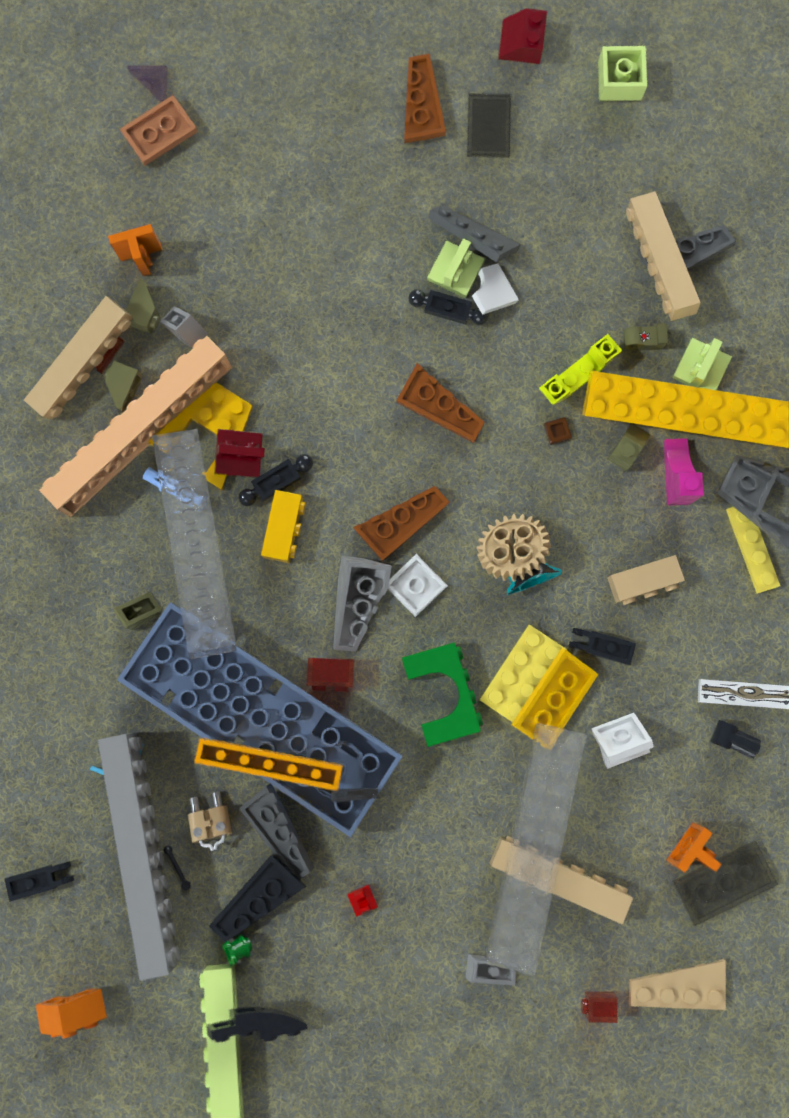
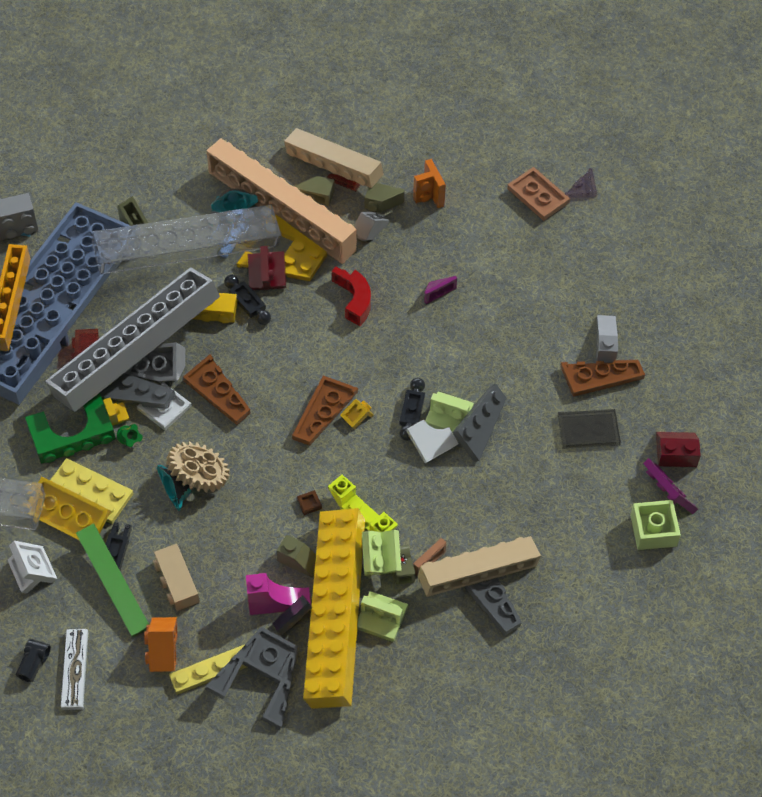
camera: 80 degrees right, 25 degrees down
(125, 486) = (234, 200): none -> teal hat
(282, 261) = (439, 288): none -> magenta slope
(284, 347) = (357, 285): none -> red arch
(339, 612) = (132, 339): none -> light grey brick
(374, 85) = (607, 339): none -> light grey slope
(392, 626) = (139, 391): none -> dark grey wing
(424, 639) = (116, 412): none -> yellow bracket
(449, 367) = (356, 413): none -> yellow bracket
(458, 625) = (129, 435): none -> green brick
(554, 63) = (665, 484): none -> magenta wing
(639, 307) = (431, 555): none -> nougat tile
(642, 355) = (381, 552): none -> yellowish green bracket
(646, 649) = (113, 580): none -> bright green tile
(704, 456) = (292, 615): none -> black tile
(730, 595) = (161, 642): none -> orange brick

